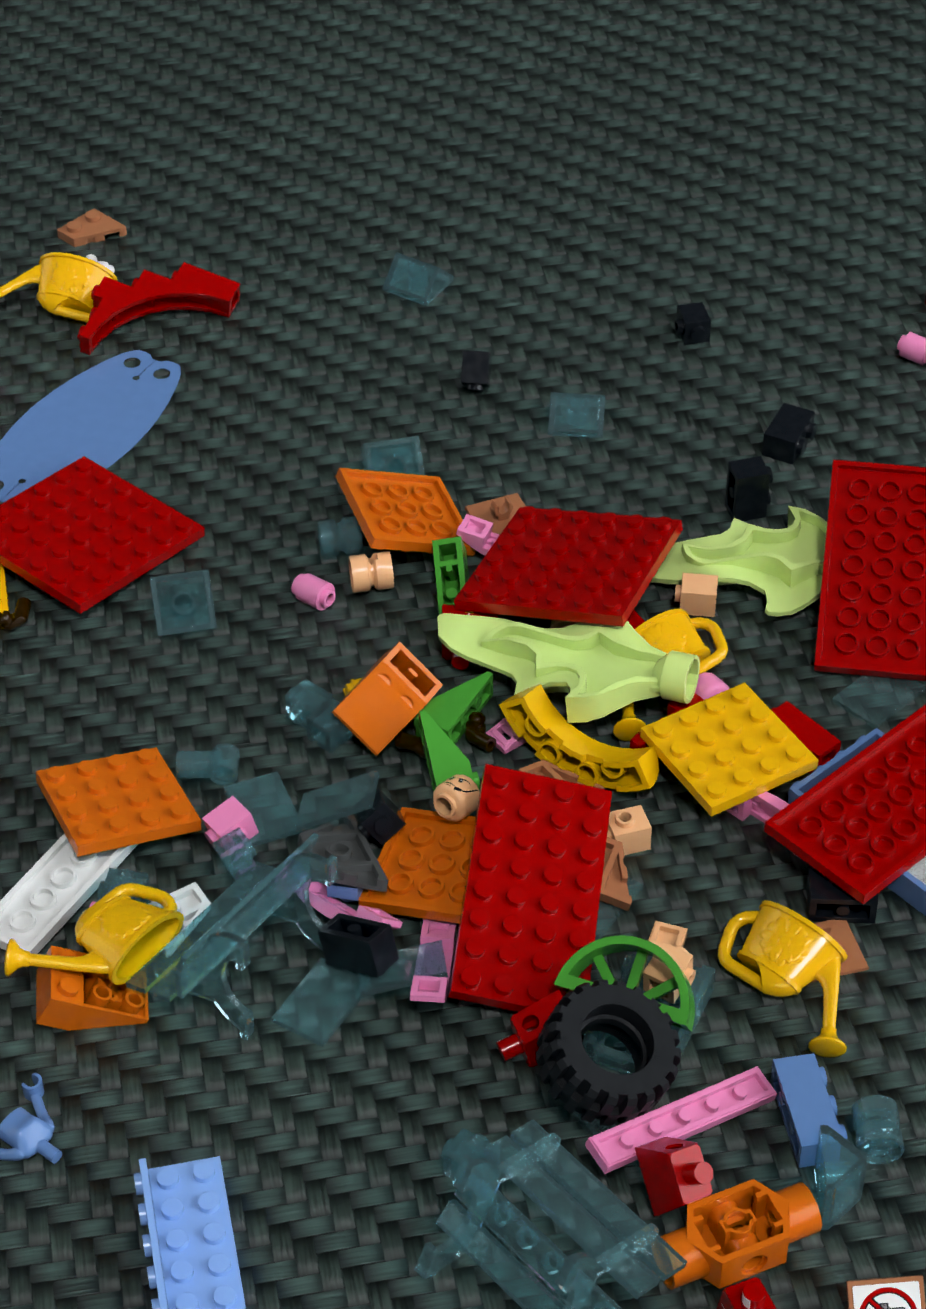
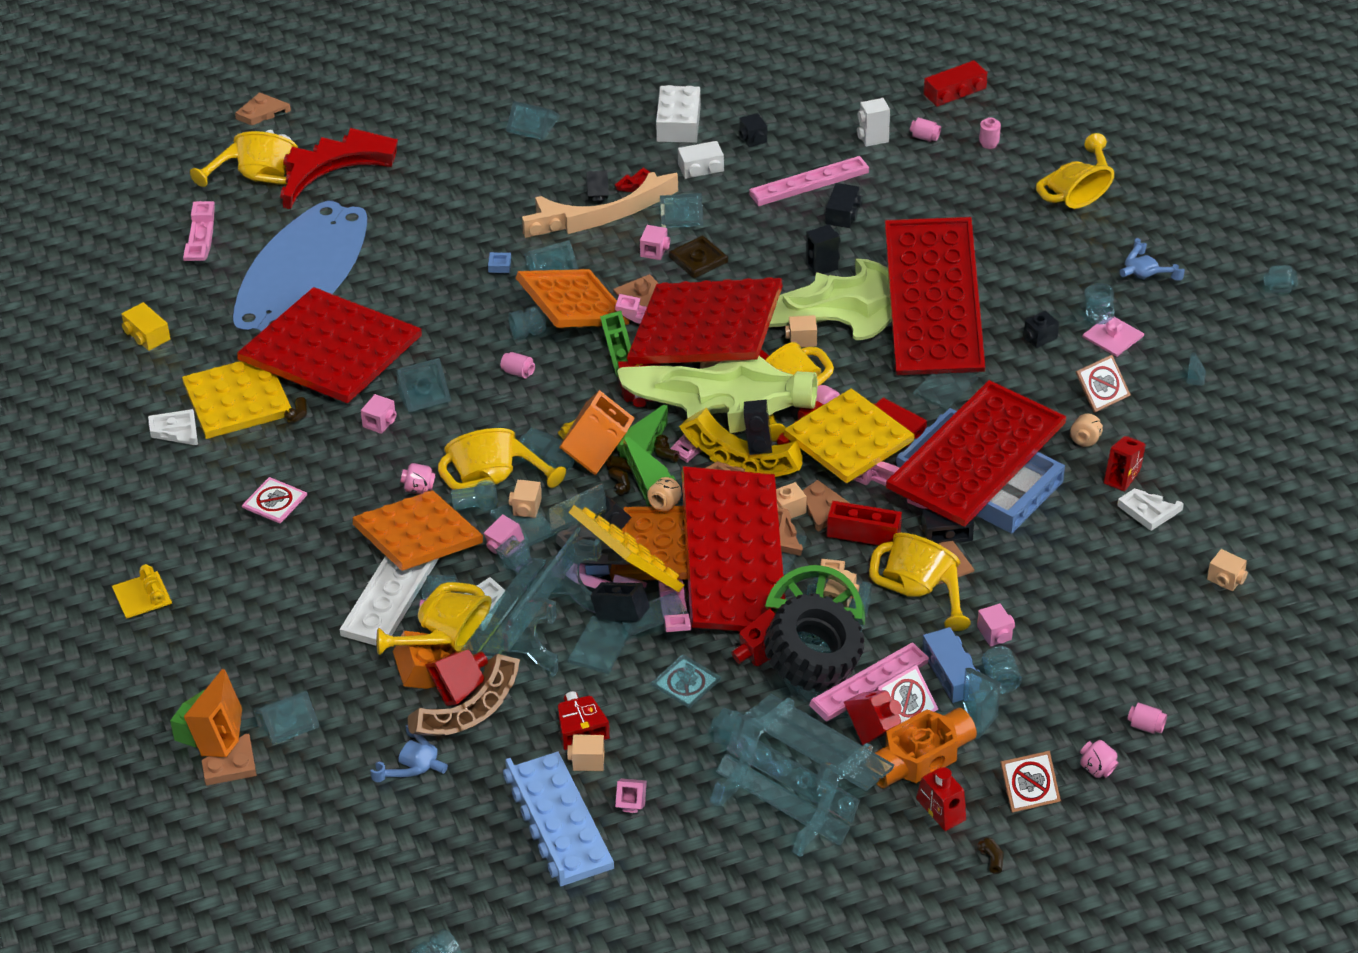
camera: 10 degrees left, 0 degrees up
(109, 1019) = (457, 674): none -> torso
(115, 633) = (378, 414): none -> bright pink brick
(136, 1066) = (489, 695): none -> medium nougat brick
(140, 729) = (417, 478): none -> bright pink head
(238, 713) = (488, 456): none -> yellow piece
(258, 1165) = (587, 752): none -> light nougat brick
(261, 1115) = (581, 717): none -> red torso
(273, 777) = (526, 498): none -> light nougat brick
(301, 1242) = (630, 795): none -> bright pink brick
(327, 453) = (499, 262): none -> medium blue plate
(371, 572) = (557, 345): light nougat wheel -> none
(378, 871) = (627, 547): none -> yellow plate
(411, 767) = (623, 485): none -> dark brown arm
(418, 404) = (556, 216): none -> light nougat slope
(426, 1075) = (686, 681): none -> clear light blue piece
(531, 452) = (654, 242): none -> bright pink brick
(533, 373) = (632, 183): none -> red slope
(585, 478) = (698, 257): none -> dark brown tile
(602, 292) = (678, 114): none -> white brick
(603, 720) = (757, 427): none -> black brick
(617, 353) = (700, 159): none -> white brick
(676, 841) = (819, 502): none -> nougat wing
(722, 877) = (862, 523): none -> red brick
(734, 1149) = (911, 692): none -> piece
(752, 396) = (808, 181): none -> bright pink tile
(850, 330) = (874, 122): none -> white brick
(882, 1057) = (995, 624): none -> bright pink brick

